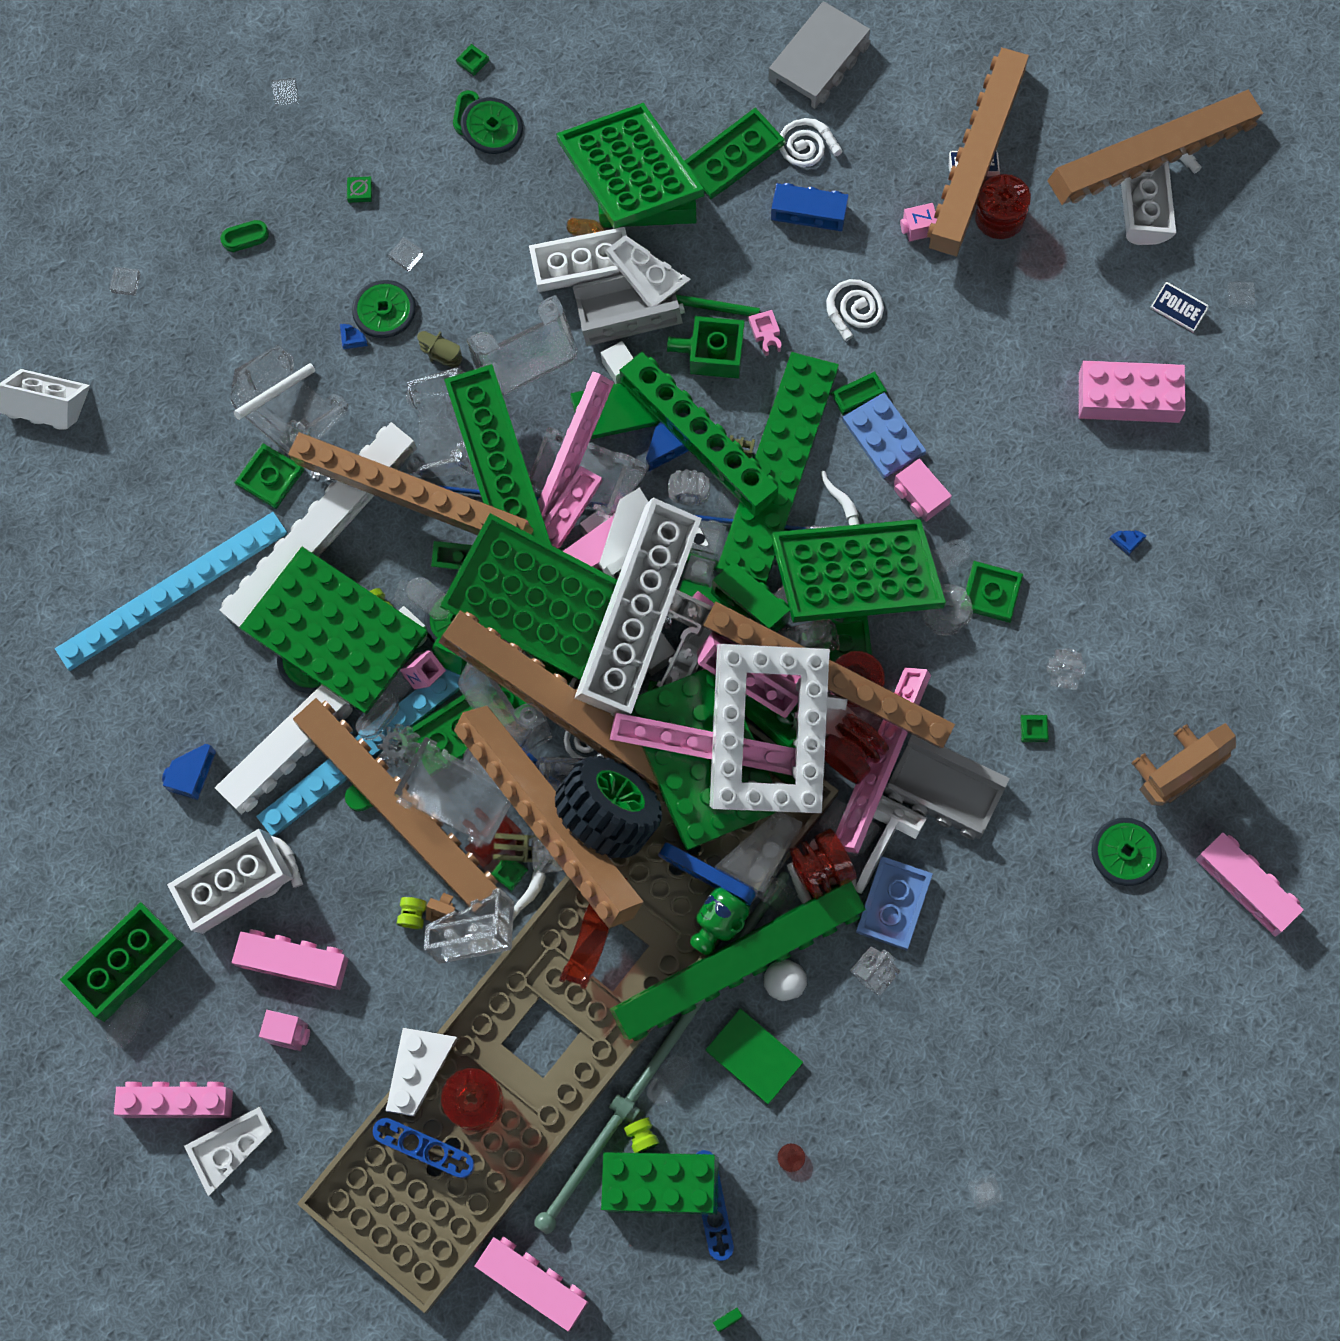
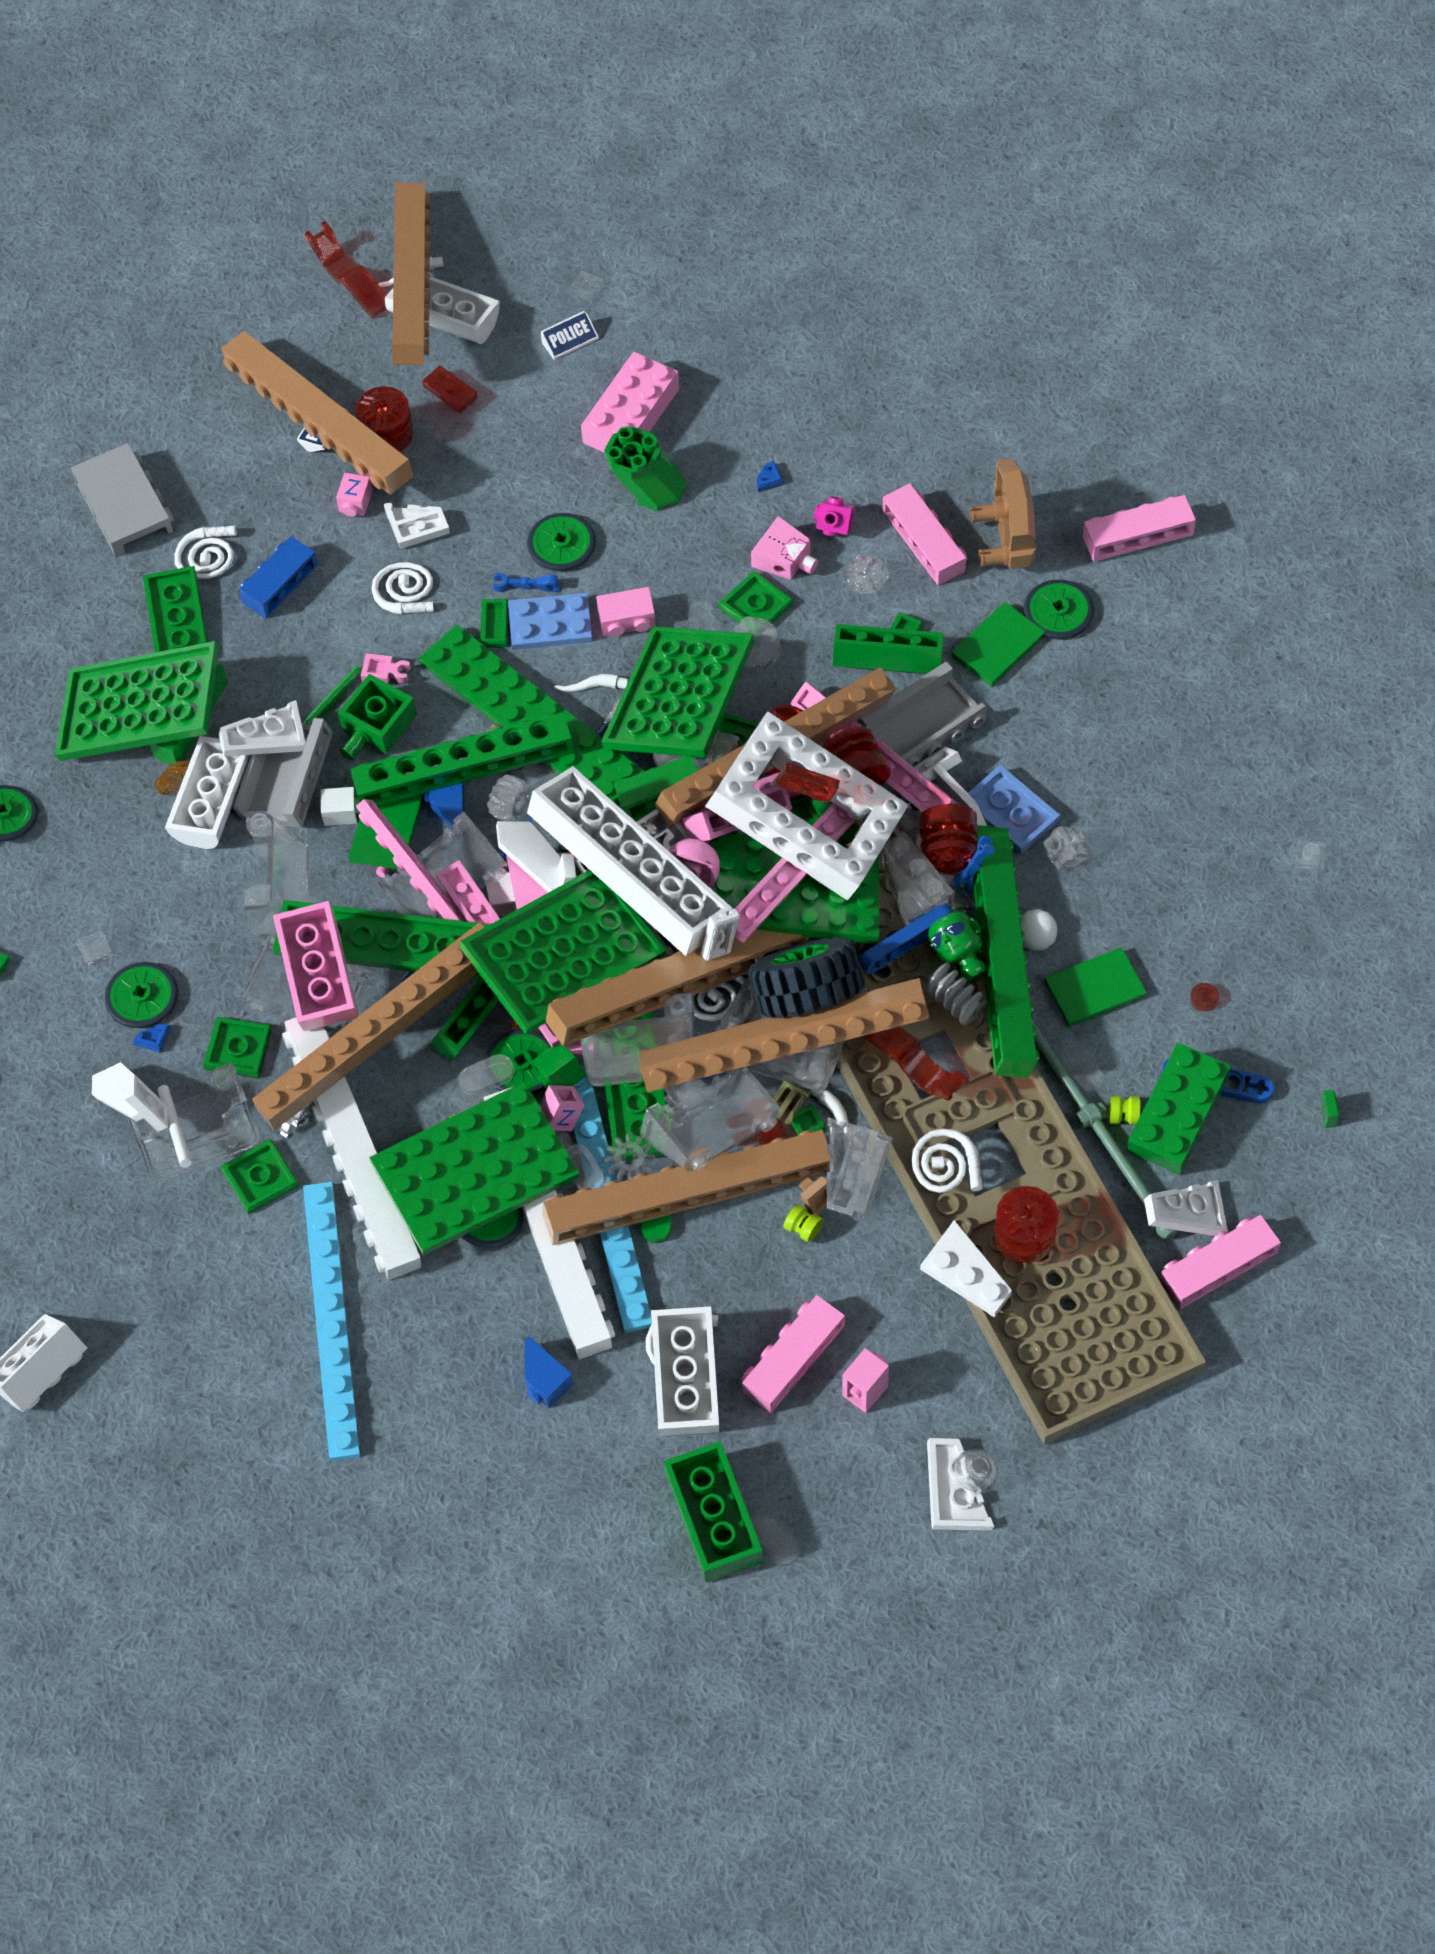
camera: 65 degrees left, 10 degrees down
(173, 1102) = (883, 1519): bright pink brick -> none
(245, 1158) = (976, 1470): none -> clear hair
(281, 345) = (129, 1096): none -> white piece
(372, 402) = (239, 1043): none -> green tile
(422, 1151) = (1051, 1298): blue beam -> none
(435, 417) = (315, 966): none -> bright pink brick
(440, 349) = (221, 958): olive arm -> none
(508, 999) = (939, 1162): none -> white piece
(565, 1234) = (1189, 1209): none -> white wing
(602, 713) = (717, 936): none -> white tile
(669, 939) = (954, 996): none -> light grey piece
(673, 662) = (698, 858): none -> bright pink cylinder
(776, 728) = (807, 782): none -> clear red plate
(808, 897) = (967, 875): none -> blue piece
(918, 413) = (546, 583): none -> blue piece
(919, 283) = (416, 523): none -> white wing
(972, 419) = (559, 556): none -> green wheel
(997, 723) = (887, 648): none -> green brick
(1054, 588) = (783, 551): none -> bright pink torso
(1061, 815) = (998, 644): none -> green tile
(1068, 241) = (450, 389): none -> clear red plate
(1069, 433) = (645, 468): none -> green brick
(1112, 614) = (843, 515): none -> dark pink brick
(1138, 698) = (924, 534): none -> bright pink brick
(1143, 98) = (344, 271): none -> clear red piece

